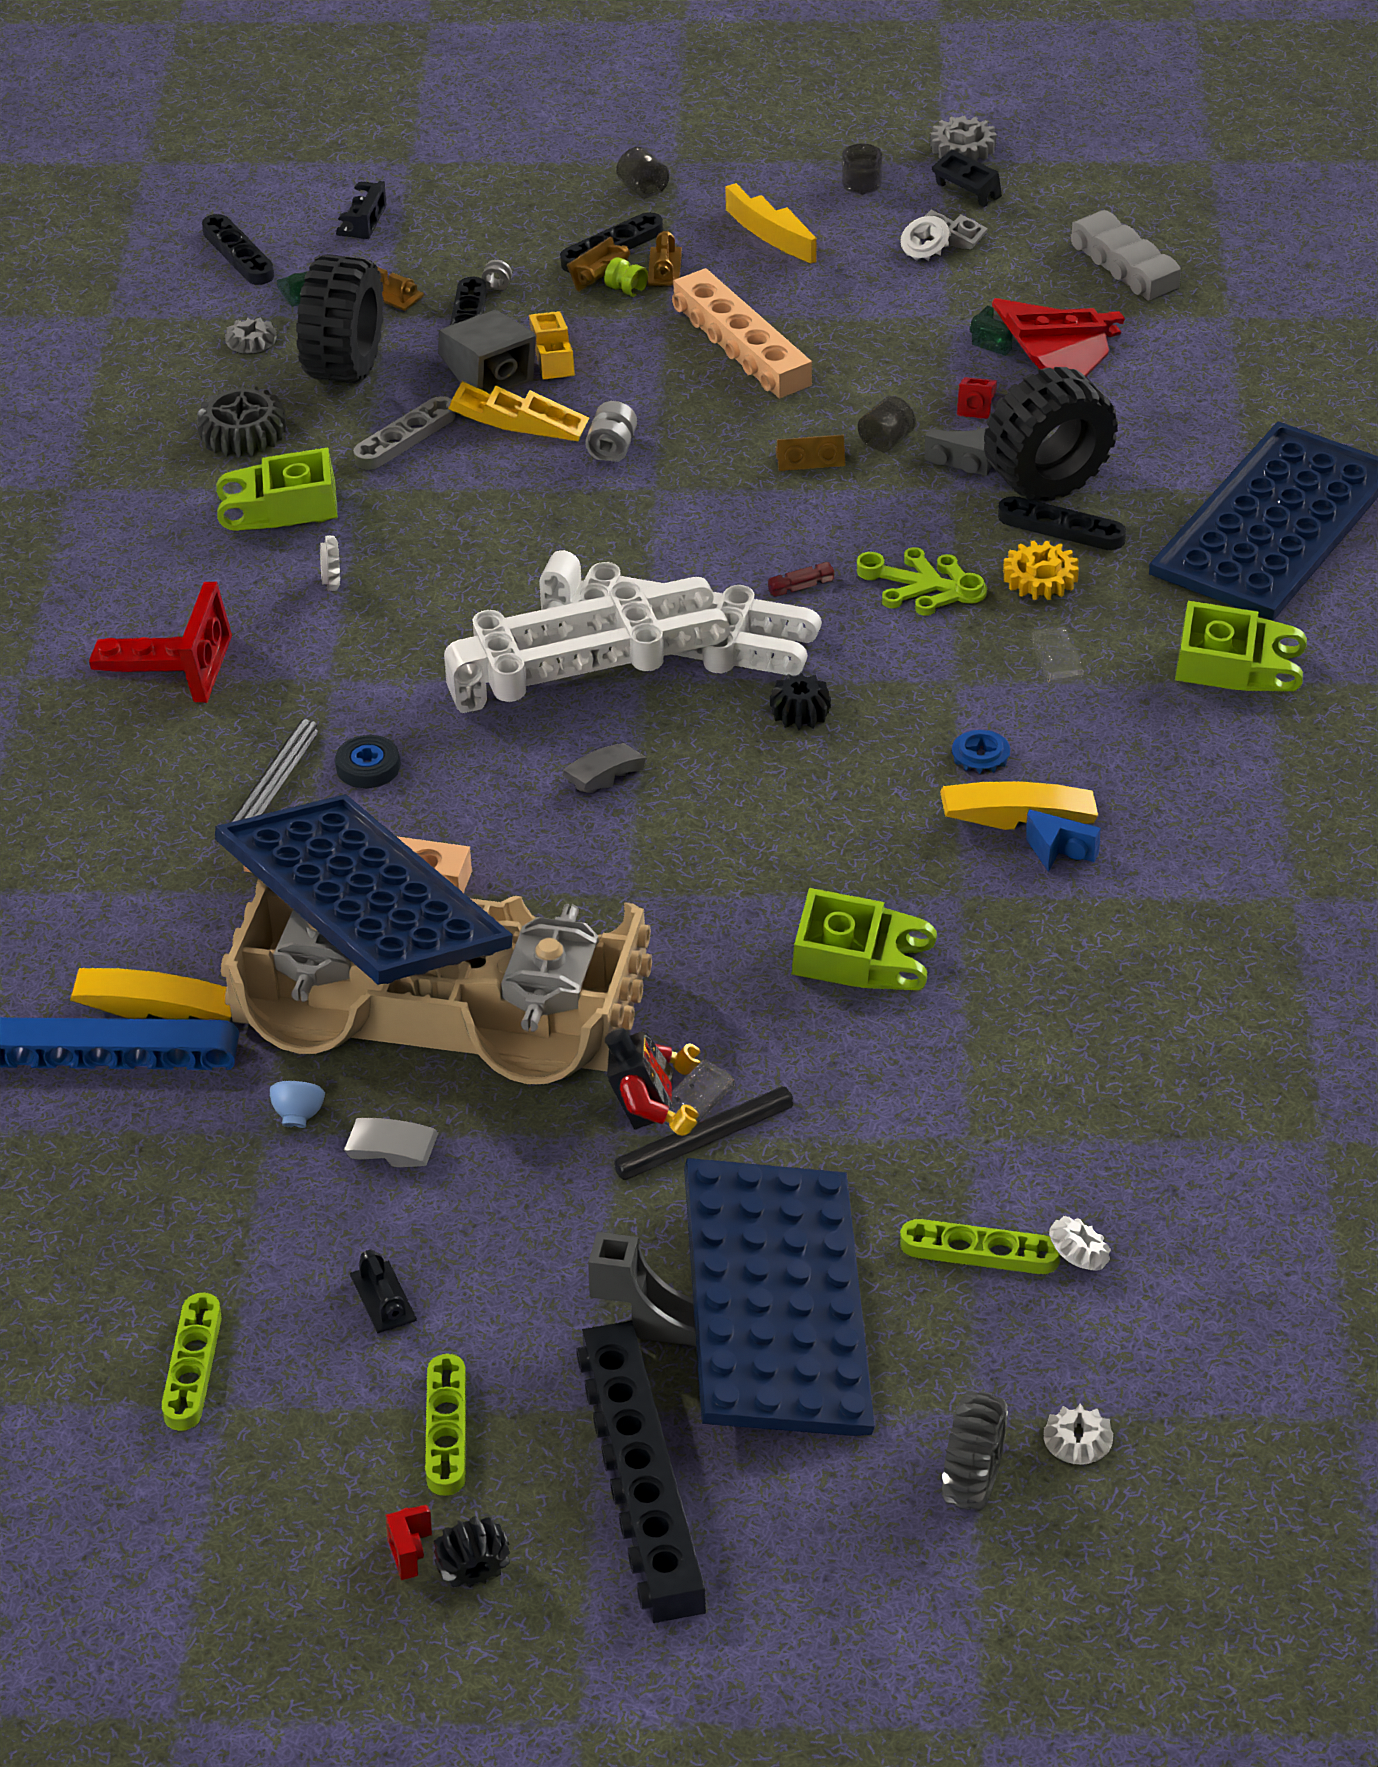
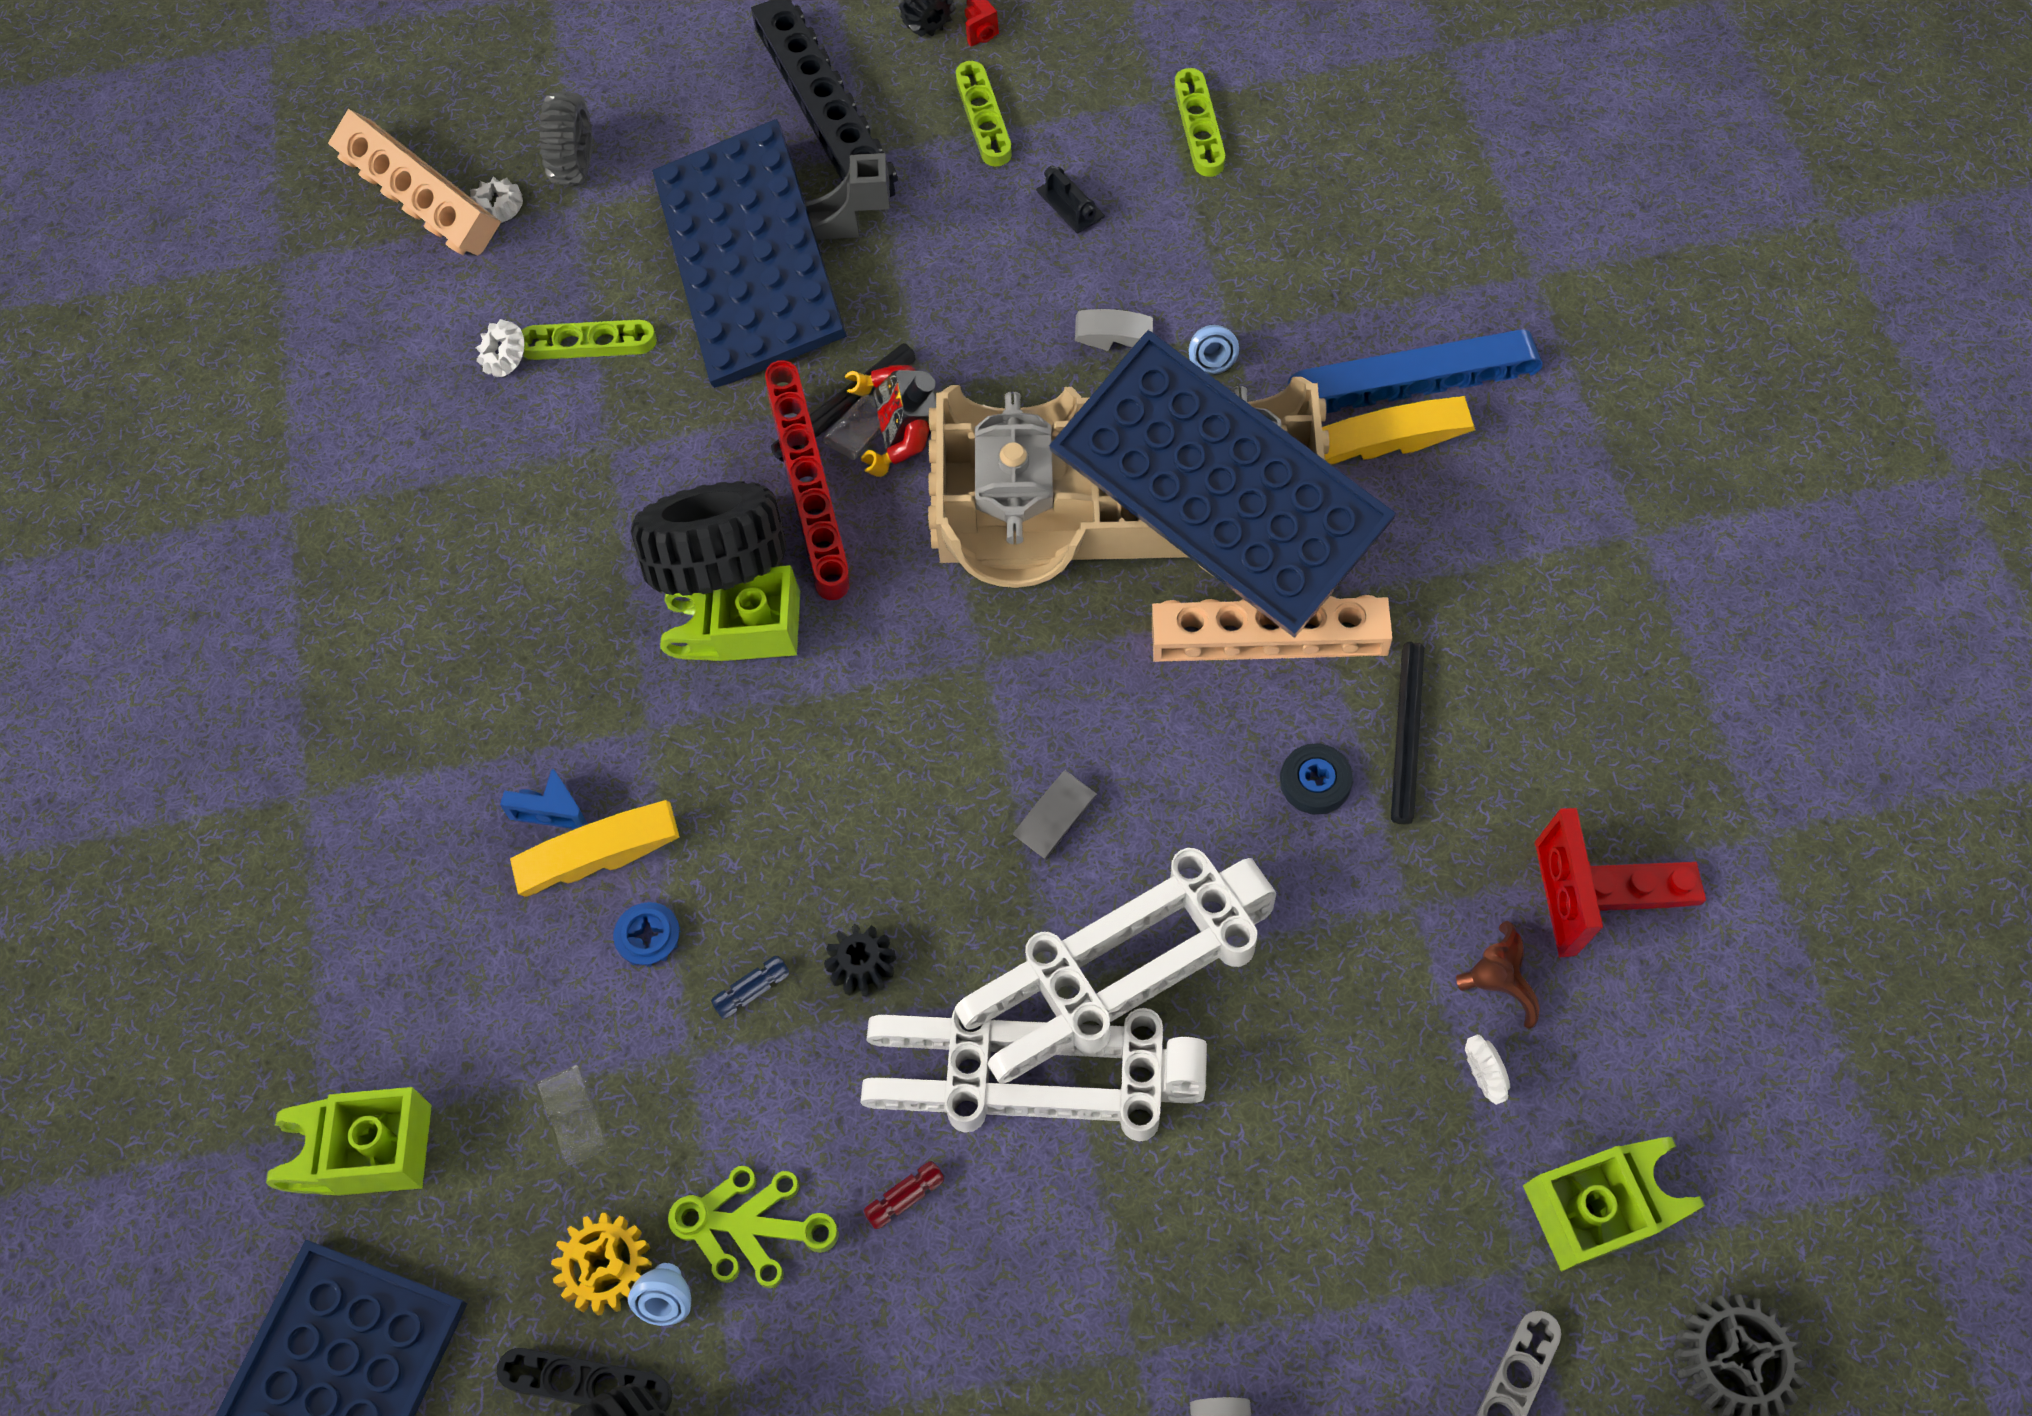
camera: 170 degrees right, 20 degrees up
(285, 616) = (1501, 972): none -> copper piece
(761, 1042) = (810, 494): none -> red beam
(883, 913) = (709, 538): none -> black tyre
(897, 707) = (750, 986): none -> dark blue axle
(994, 545) = (661, 1296): none -> light blue brick
(1179, 1451) = (414, 183): none -> light nougat brick

